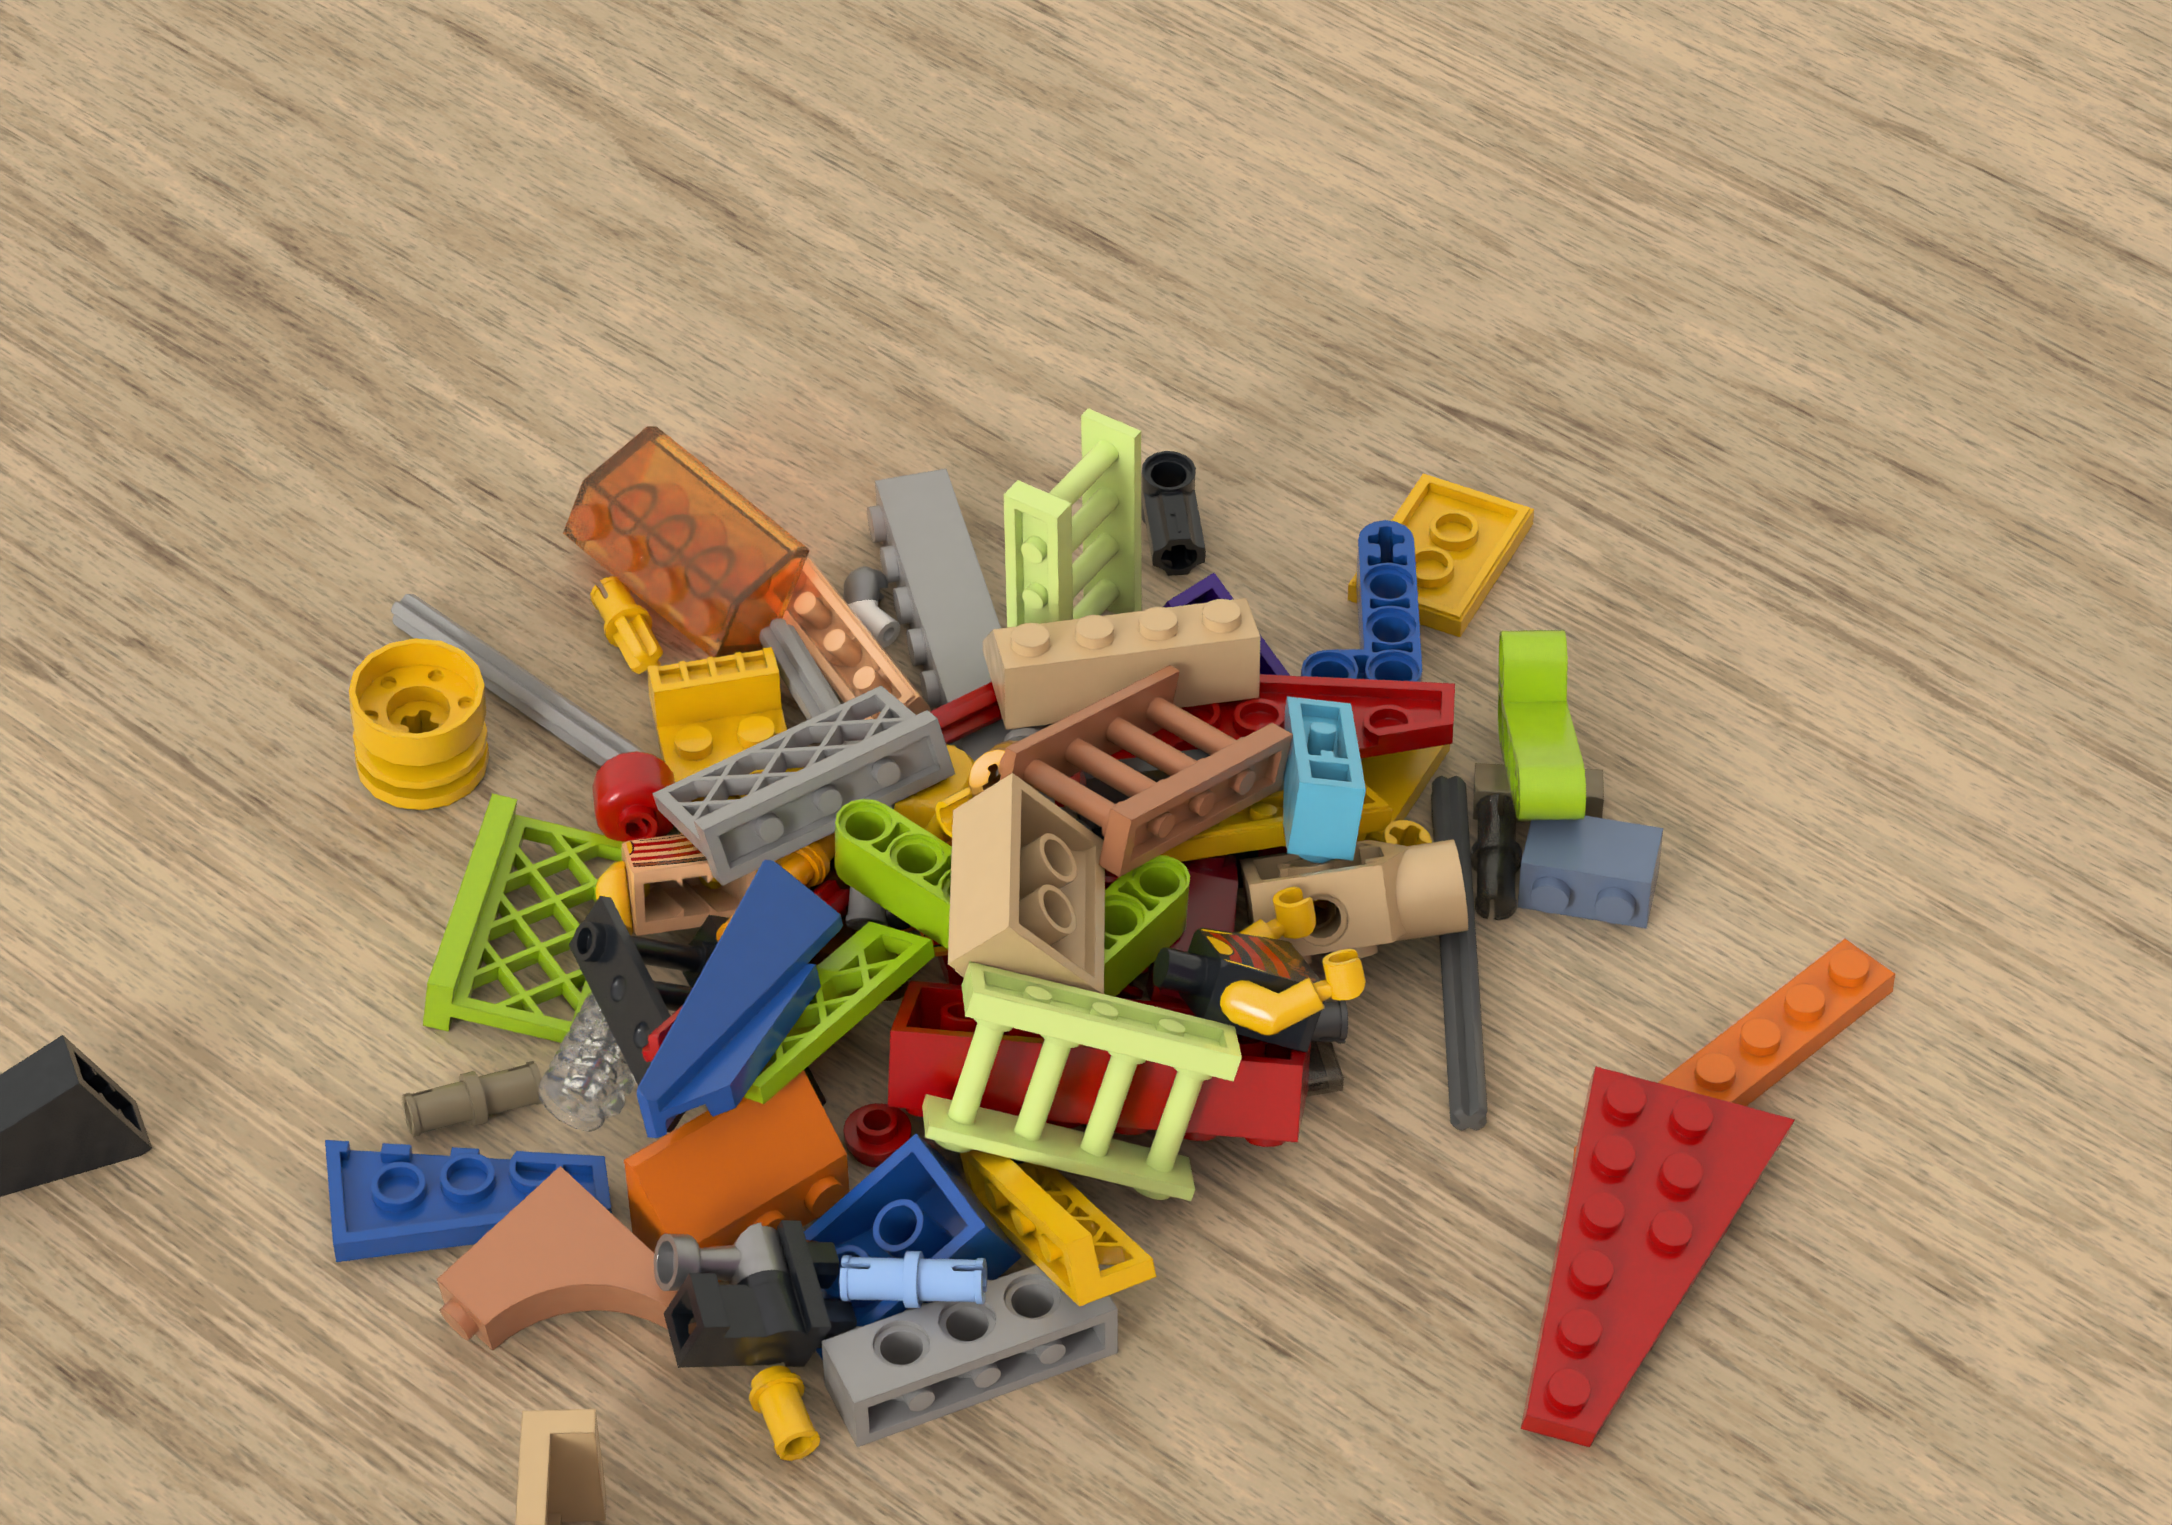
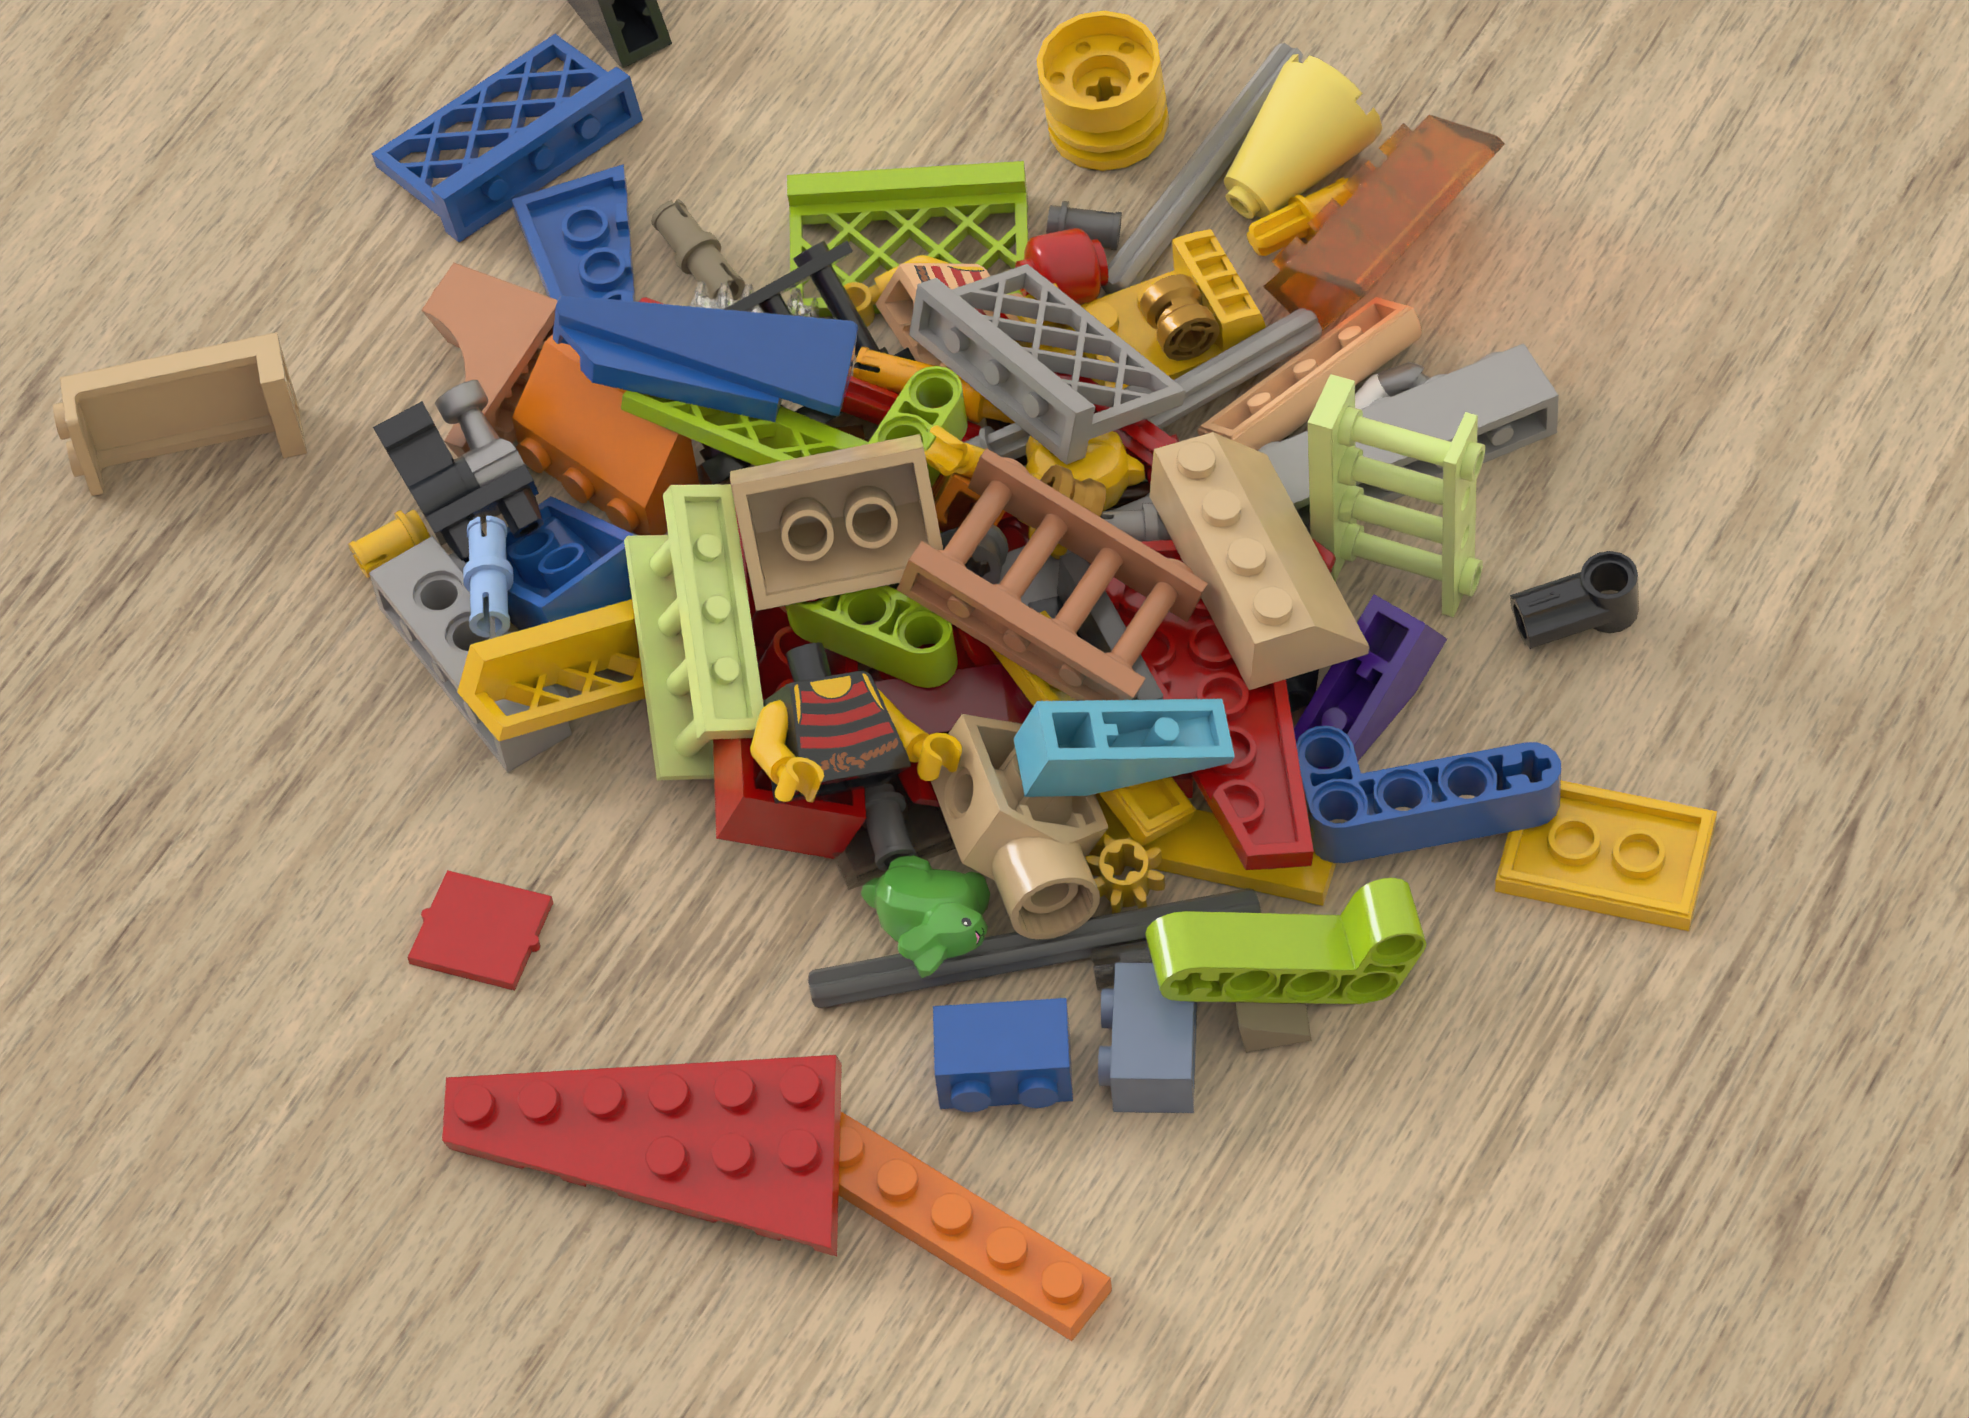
camera: 85 degrees right, 10 degrees up
(270, 1235) = (521, 156): none -> blue fence
(538, 596) = (1298, 137): none -> light yellow cone
(563, 797) = (1096, 224): none -> dark grey pin
(767, 702) = (1185, 325): none -> pearl gold wheel
(1323, 1391) = (480, 930): none -> piece
(1415, 996) = (929, 910): none -> bright green animal
(1587, 977) = (1002, 1054): none -> blue brick

